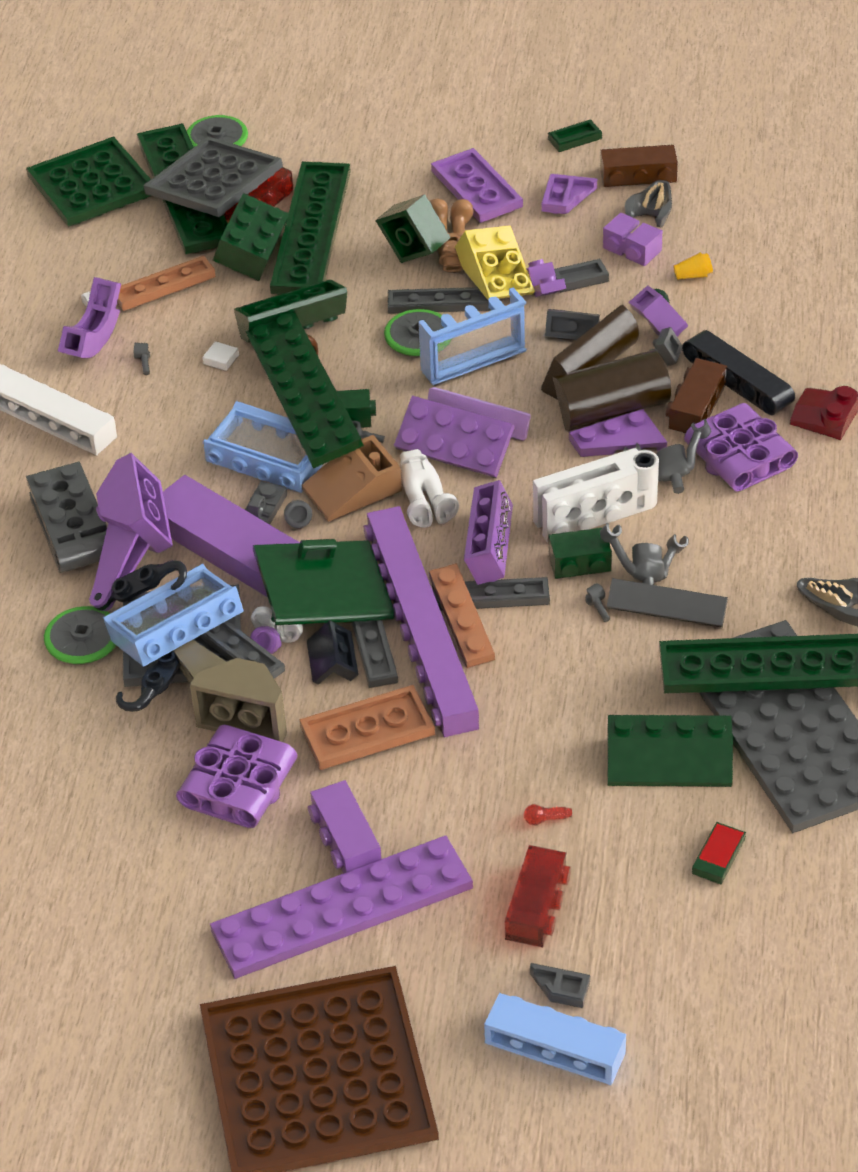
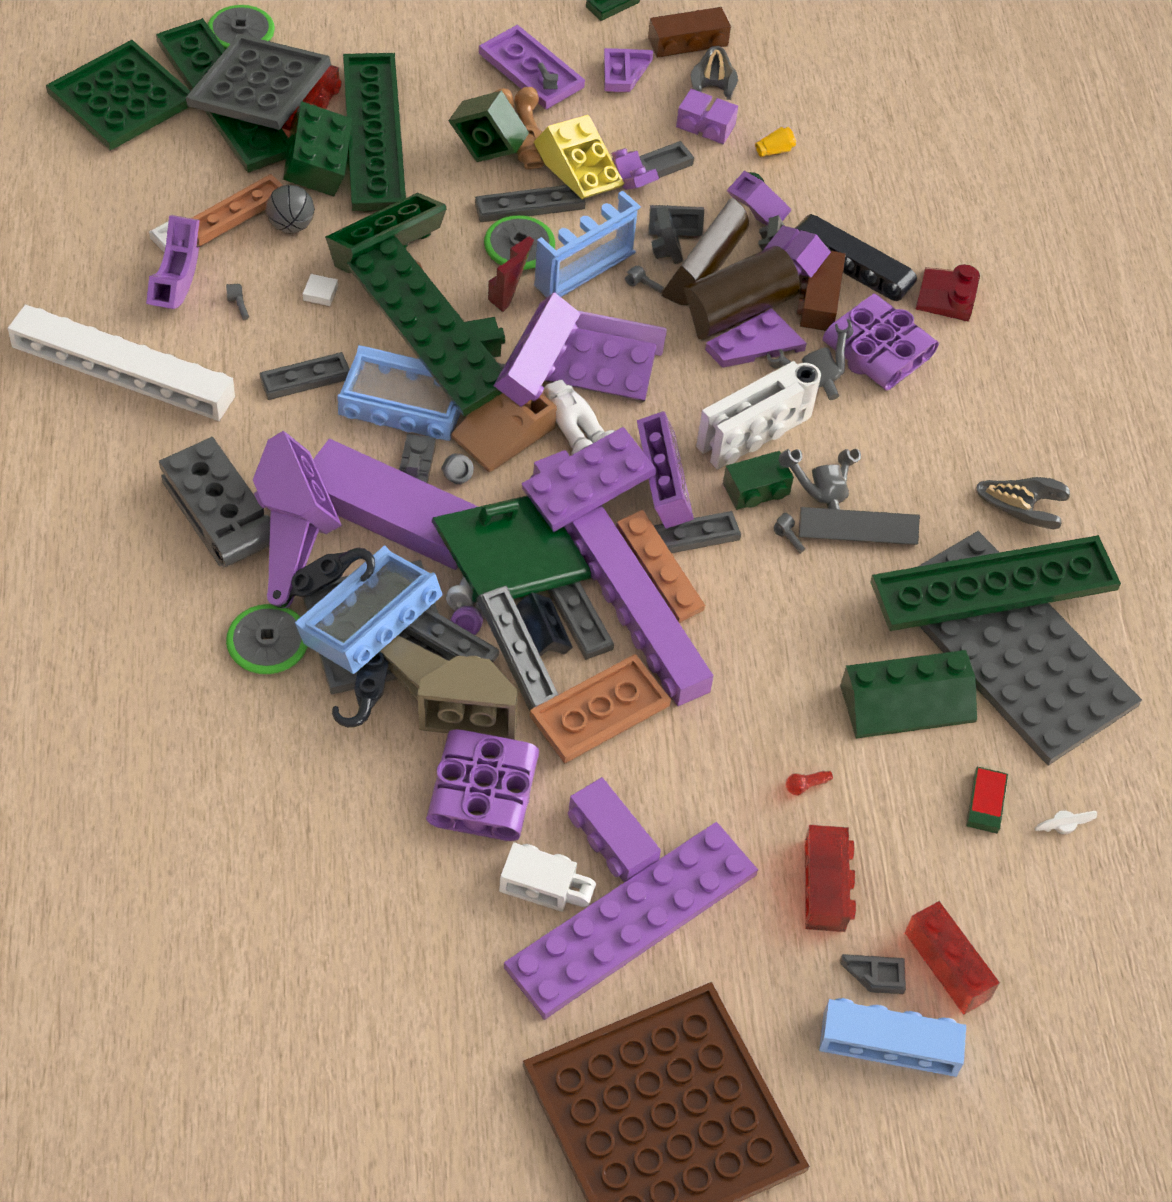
camera: 20 degrees left, 10 degrees up
(182, 425) = (304, 376): none -> dark grey tile
(210, 284) = (290, 209): none -> dark grey piece
(267, 859) = (544, 878): none -> white brick
(301, 662) = (517, 646): none -> tile
(391, 414) = (537, 350): none -> brick
(393, 355) = (504, 284): none -> dark red slope
(410, 530) = (588, 478): none -> medium lavender plate
(487, 196) = (549, 80): none -> dark grey hand
(522, 369) = (638, 274): none -> dark grey hand
(556, 330) = (668, 242): none -> dark grey hinge
(634, 979) = (951, 957): none -> clear red brick
(680, 357) = (803, 247): none -> medium lavender piece
(791, 881) = (1066, 822): none -> white piece

